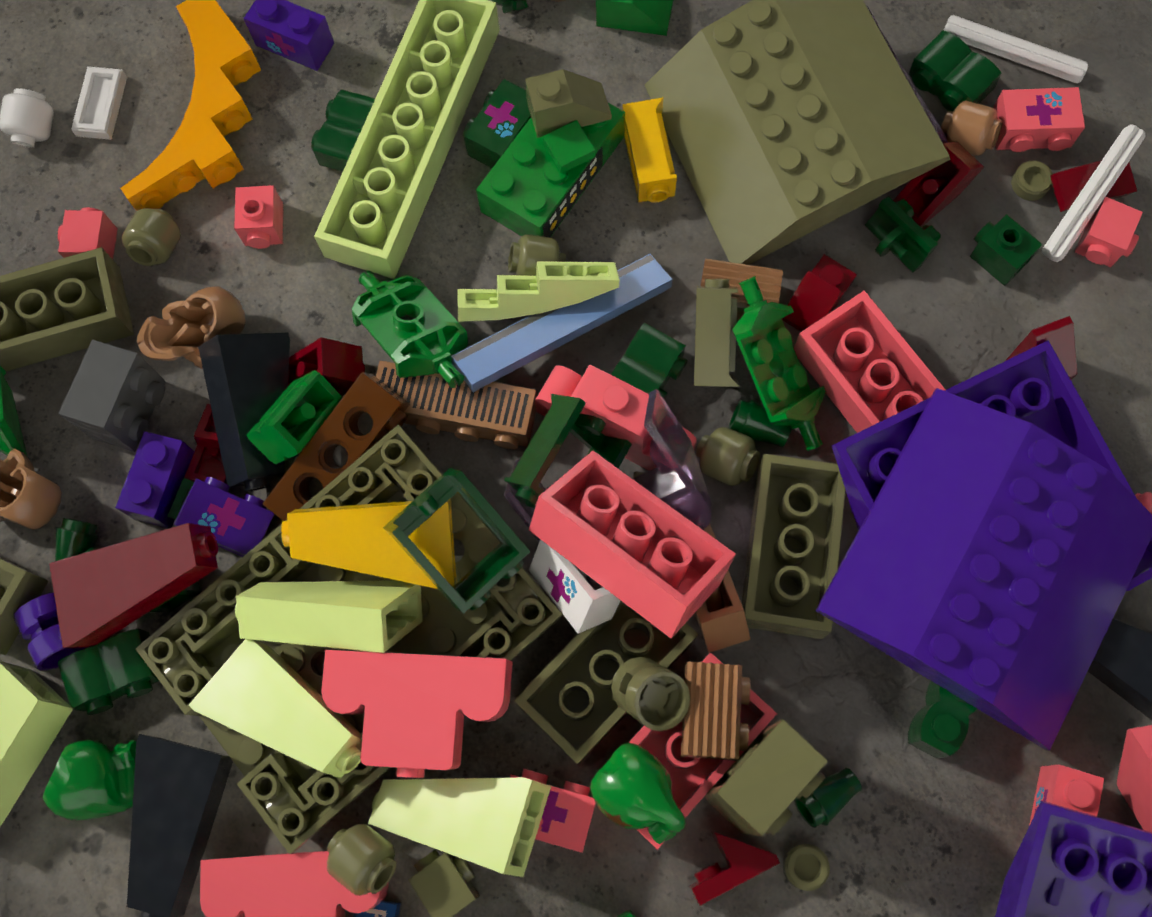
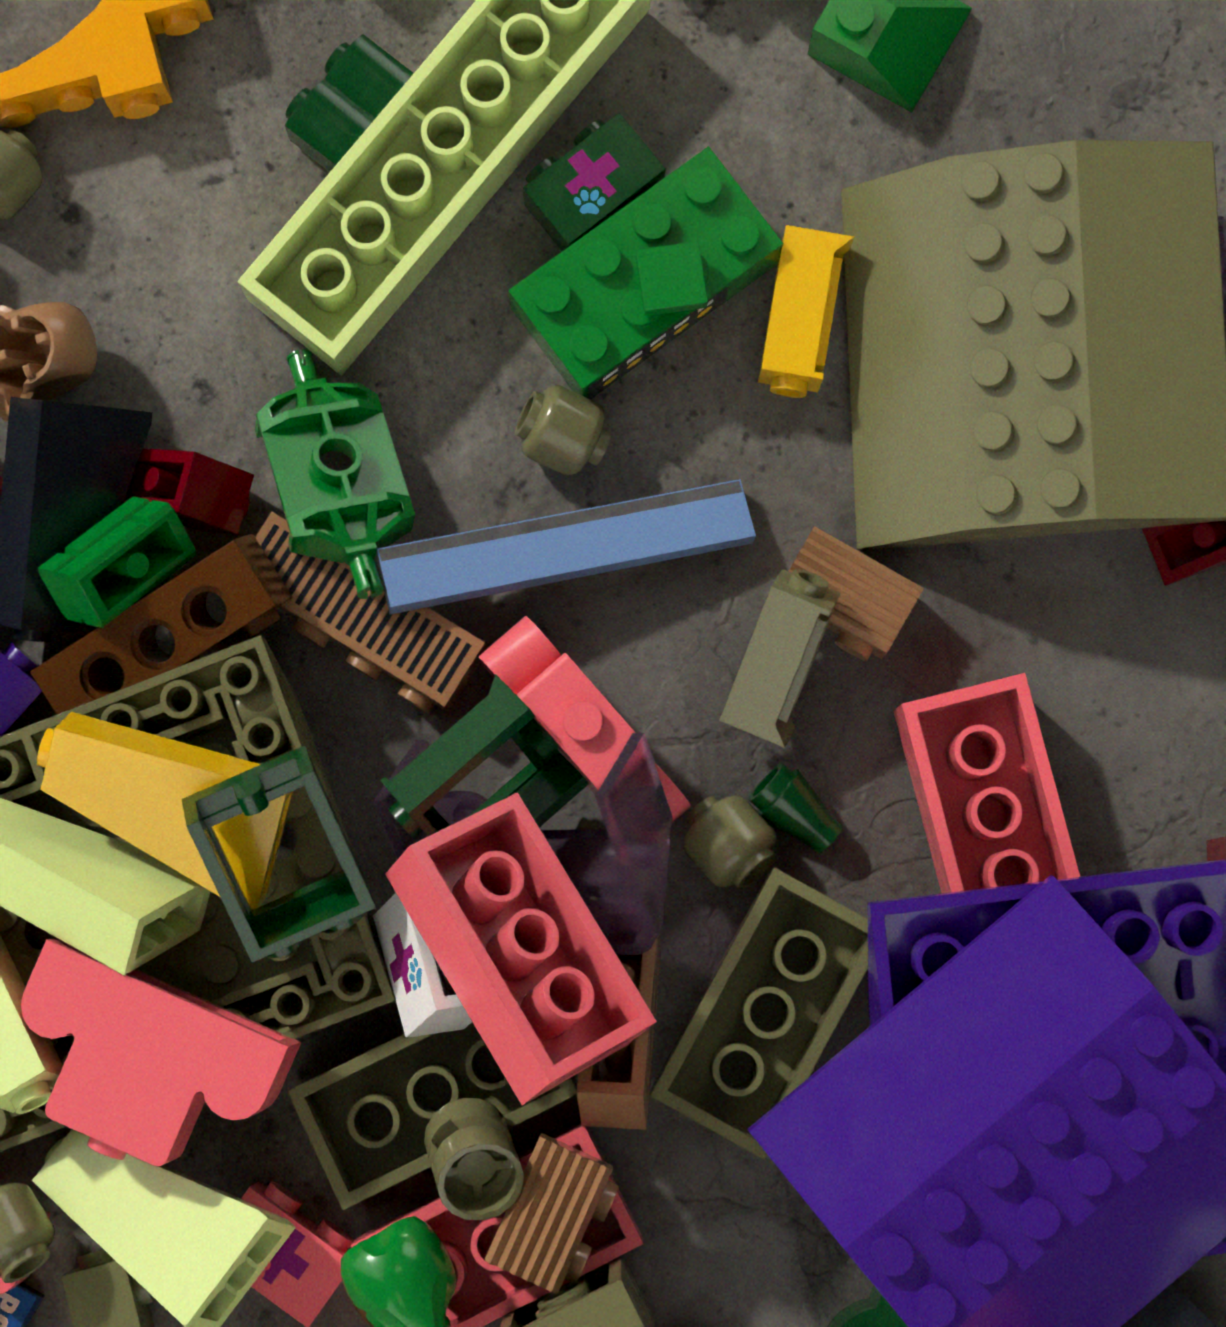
camera: 15 degrees right, 10 degrees up
(258, 216) = (168, 201): coral brick -> none
(552, 288) = (559, 492): yellowish green slope -> none
(563, 98) = (693, 203): olive slope -> none
(651, 360) = (660, 666): dark green brick -> none
(783, 384) = (855, 783): green plate -> none
(819, 293) = (967, 639): dark red slope -> none
(901, 234) = (1128, 592): dark green hips -> none

